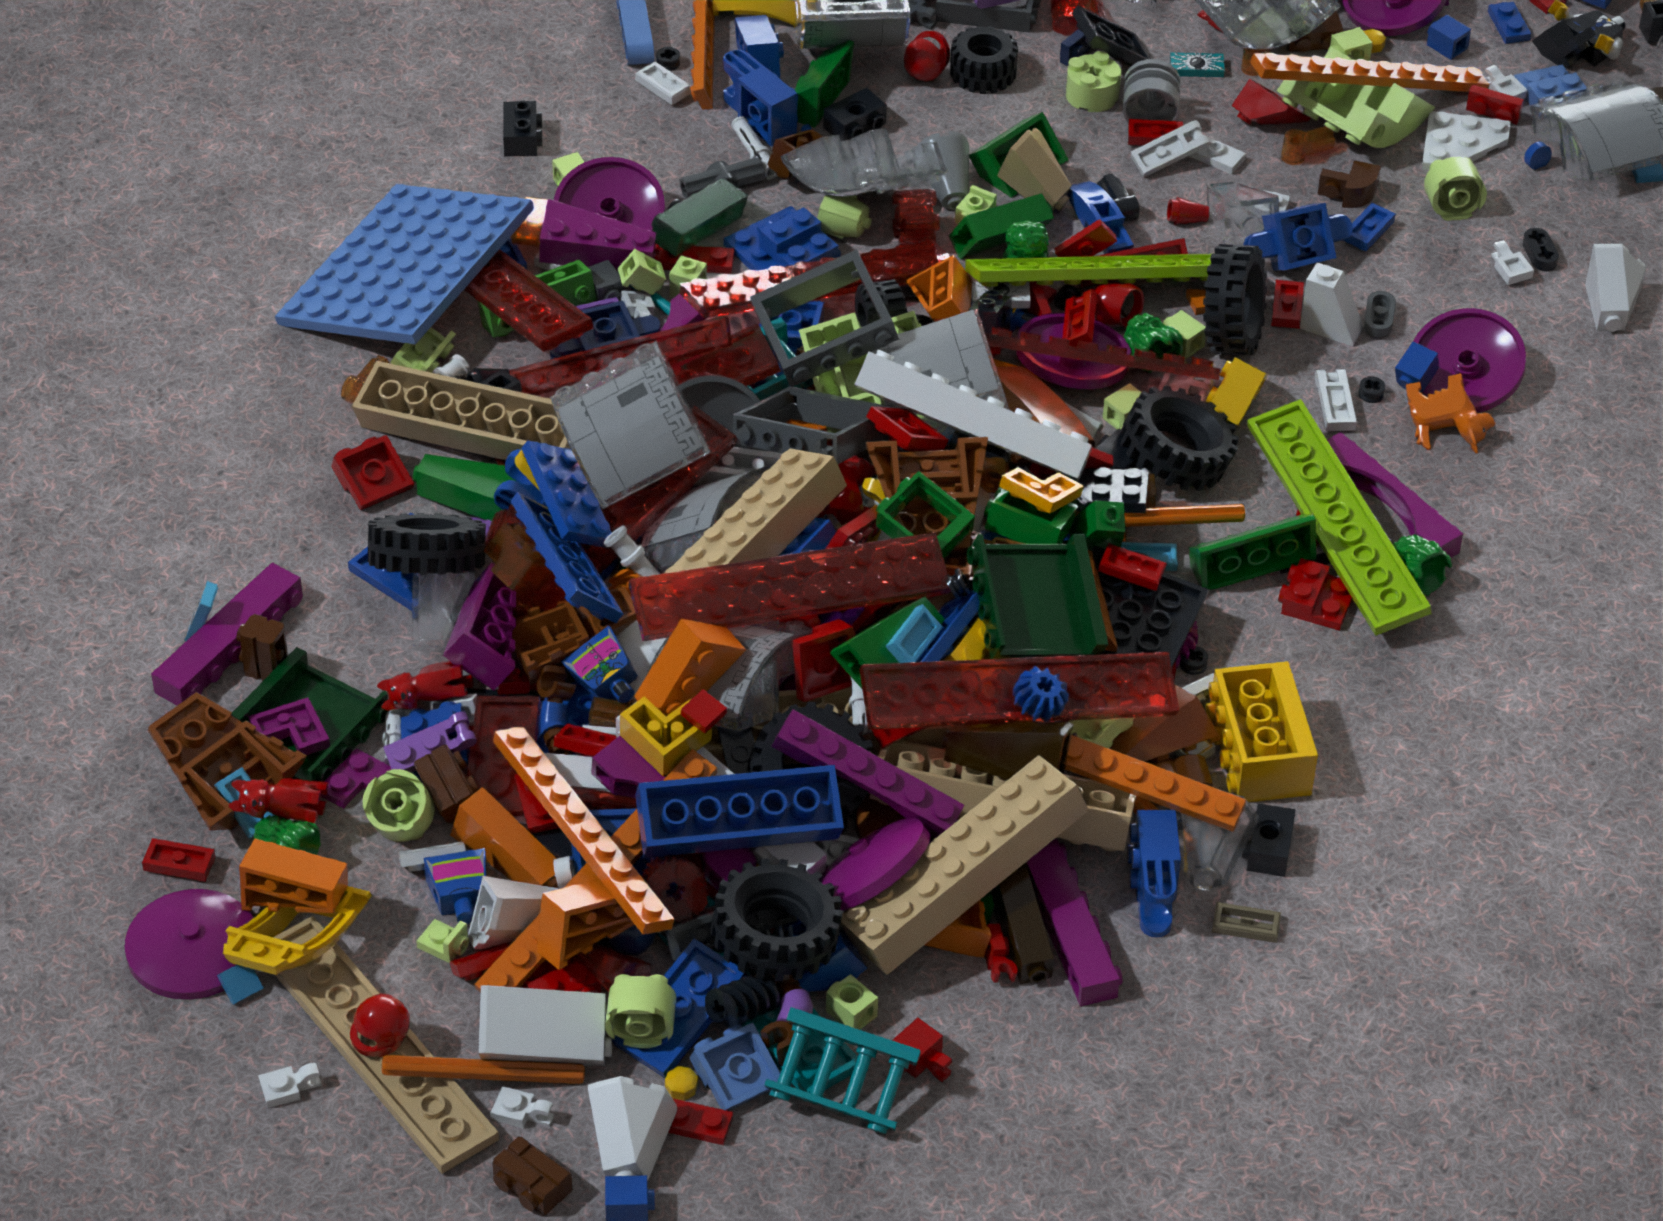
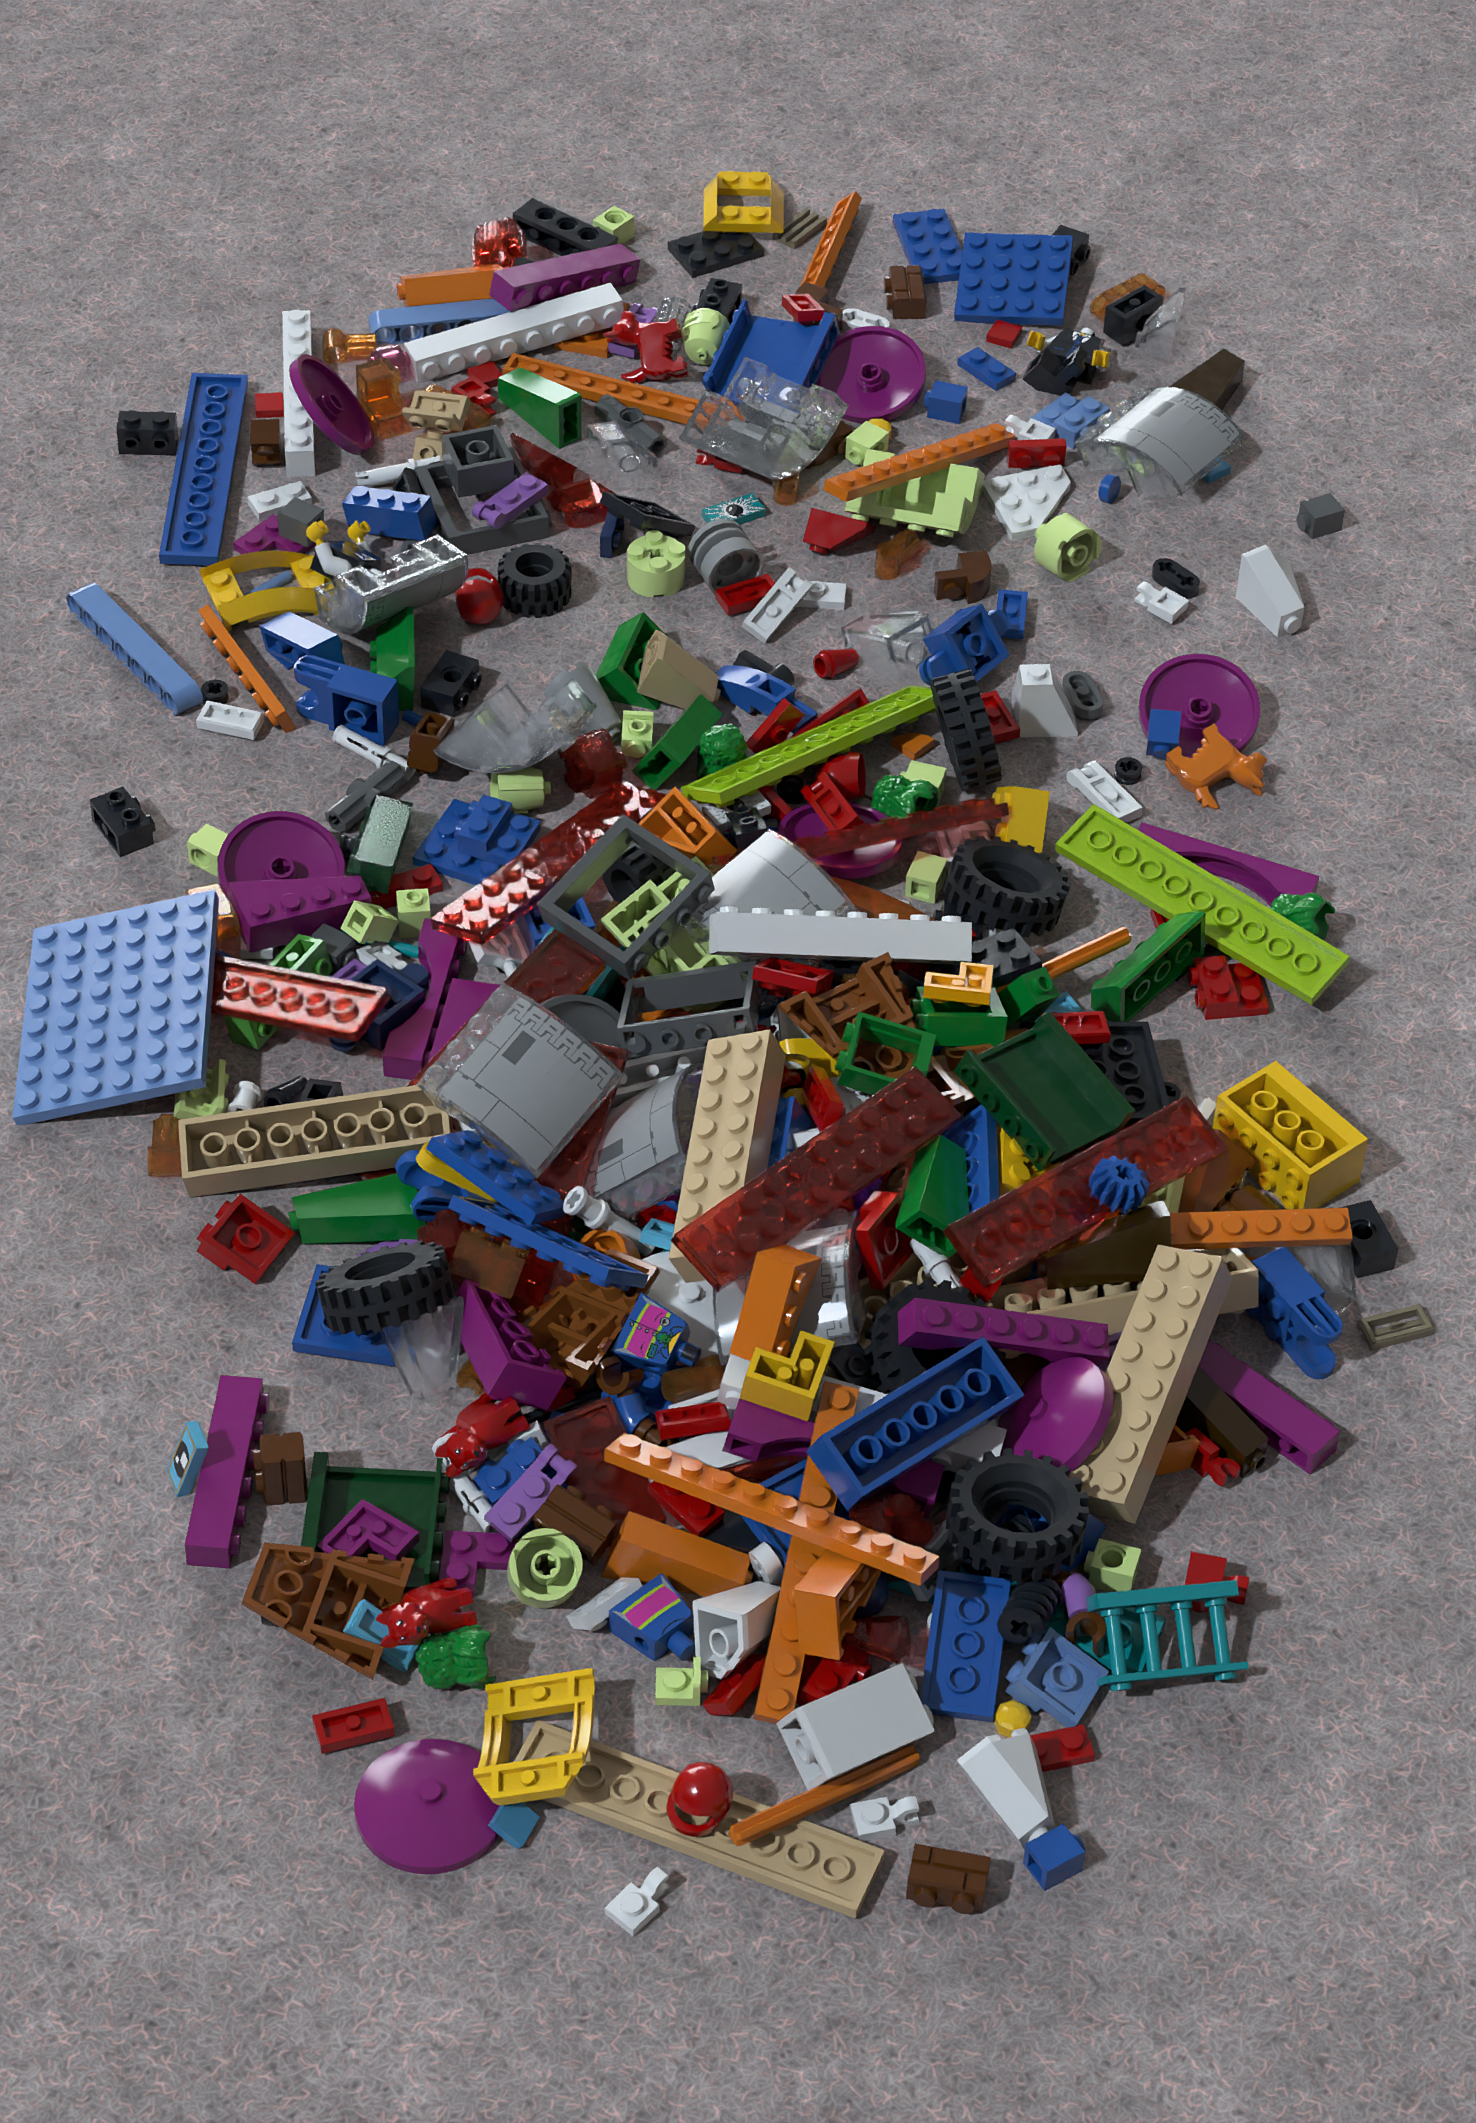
camera: 30 degrees left, 0 degrees up
(290, 878) = (506, 1690): orange wedge -> none
(641, 1010) = (945, 1663): yellowish green brick -> none
(674, 342) = (434, 1014): clear red plate -> none
(703, 711) = (825, 1337): red tile -> none
(914, 635) = (959, 1178): medium azure tile -> none
(959, 584) = (964, 1109): black bush -> none

